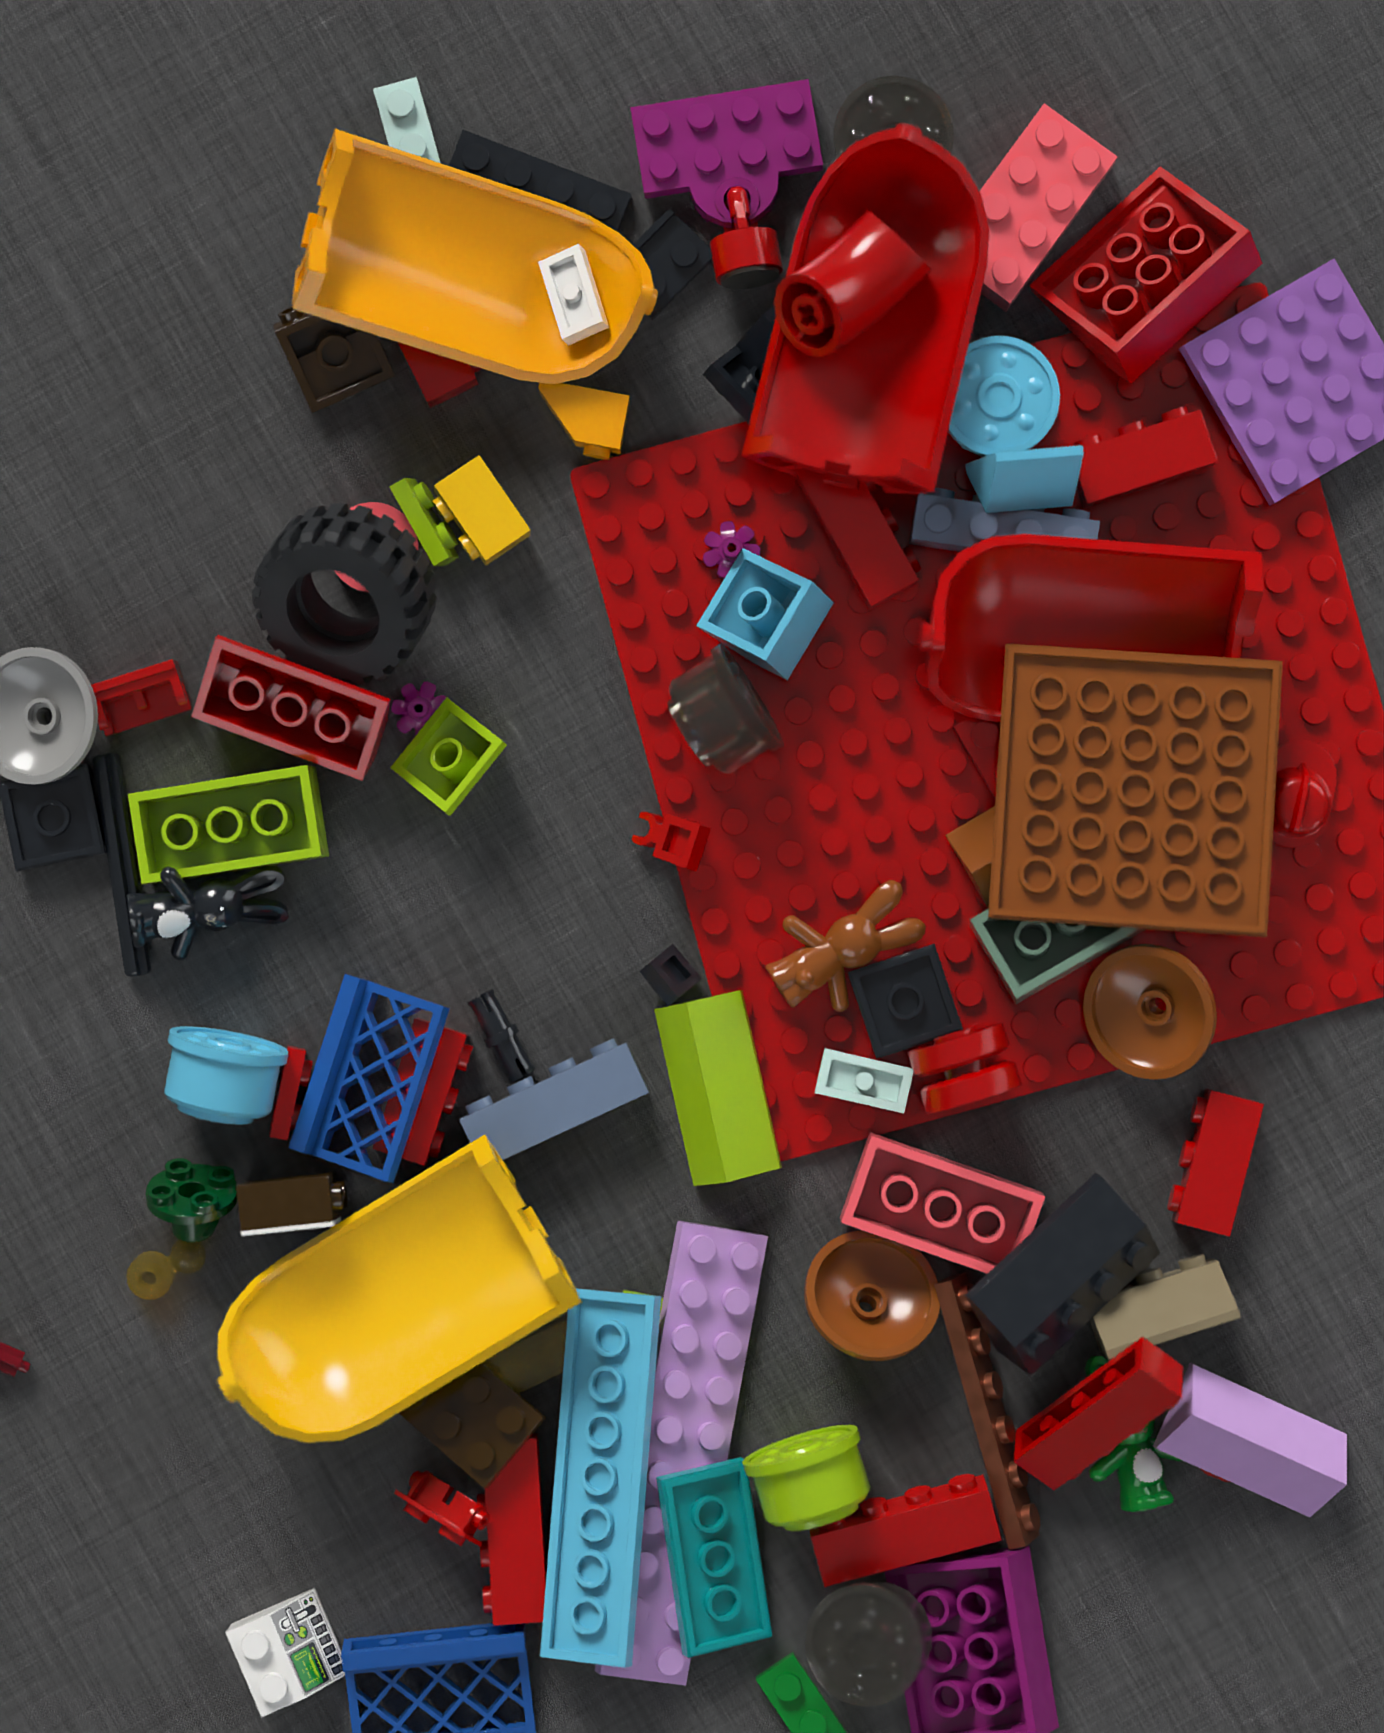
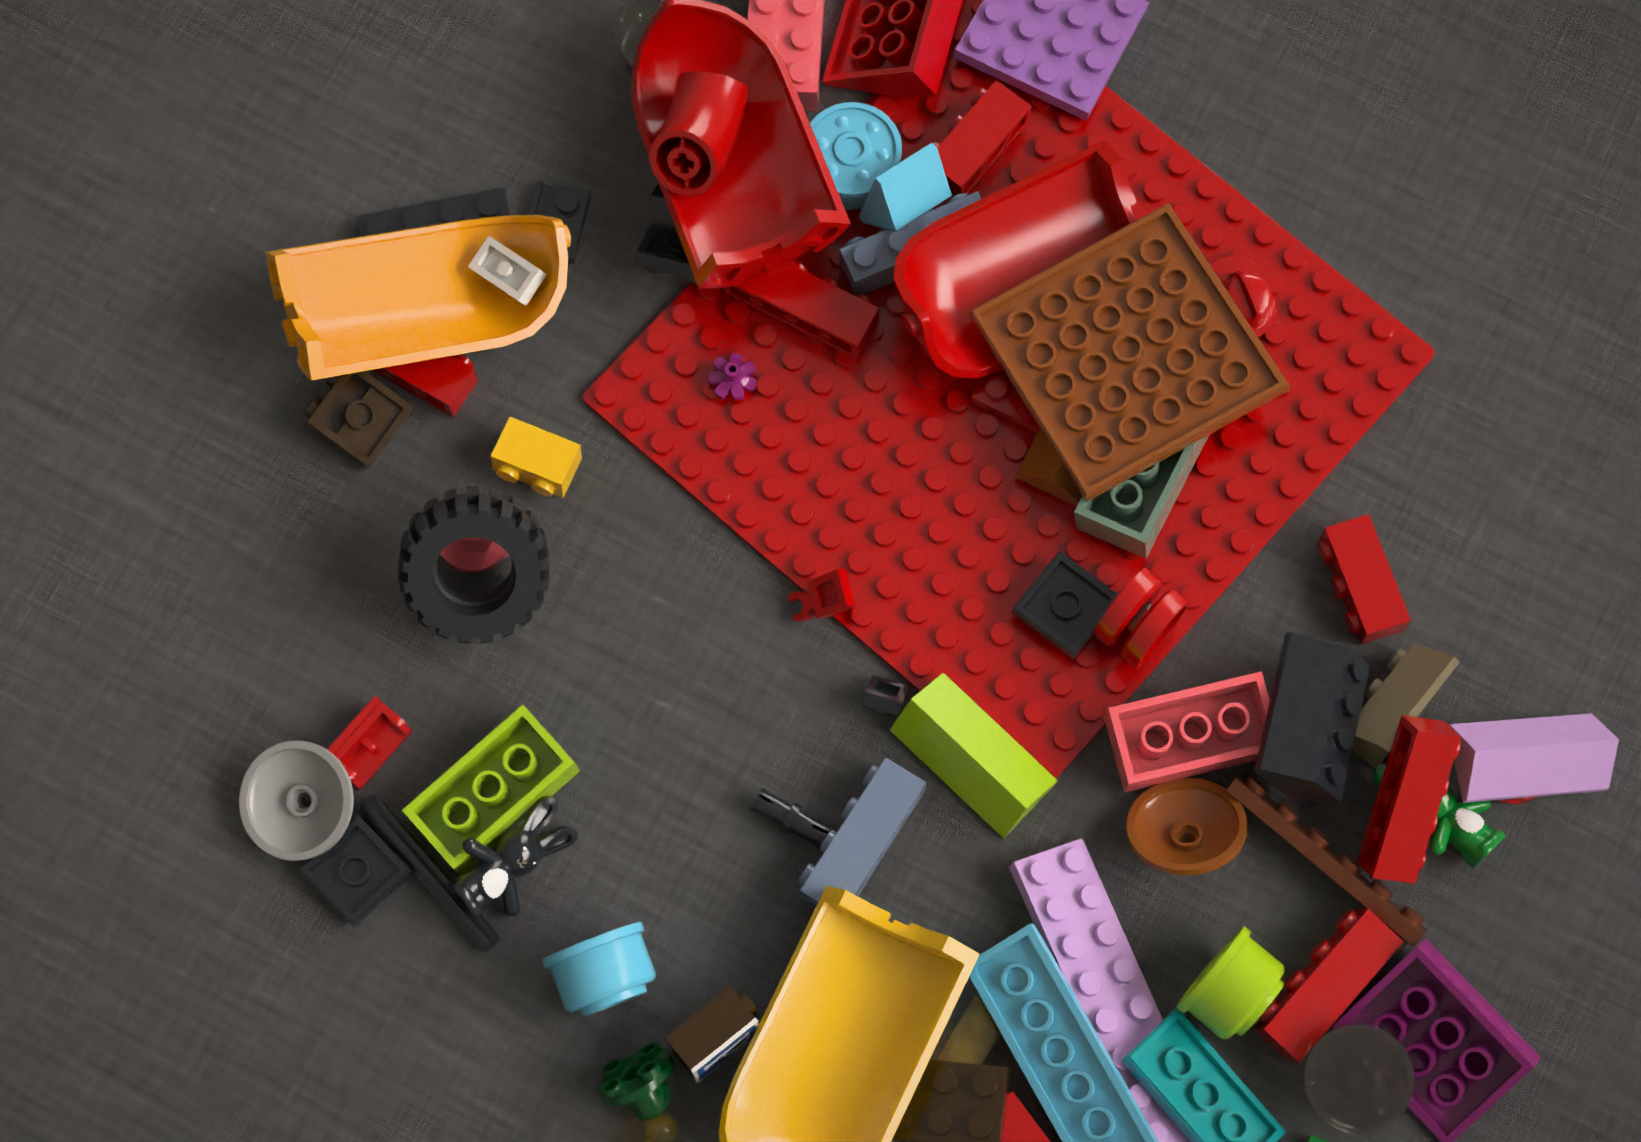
camera: 30 degrees left, 15 degrees down
(291, 708) = (484, 671): red slope -> none
(294, 1074) = (668, 974): red plate -> none
(335, 1070) = (686, 921): blue fence -> none
(406, 118) = (305, 228): light aqua plate -> none
(414, 699) = (580, 627): magenta plant -> none
(417, 506) = (488, 479): lime plate -> none
(437, 1097) = (760, 894): red brick -> none
(448, 756) = (623, 642): lime slope -> none
(589, 416) = (569, 349): light orange slope -> none
(722, 713) = (801, 479): clear smoke wheel -> none
(730, 159) = (562, 124): magenta plate -> none
(765, 613) = (786, 399): medium azure slope -> none
(848, 944) = (998, 590): dark orange animal -> none
(864, 1080) = (1075, 678): light aqua plate -> none
(1131, 1027) = (1239, 524): dark orange dish -> none

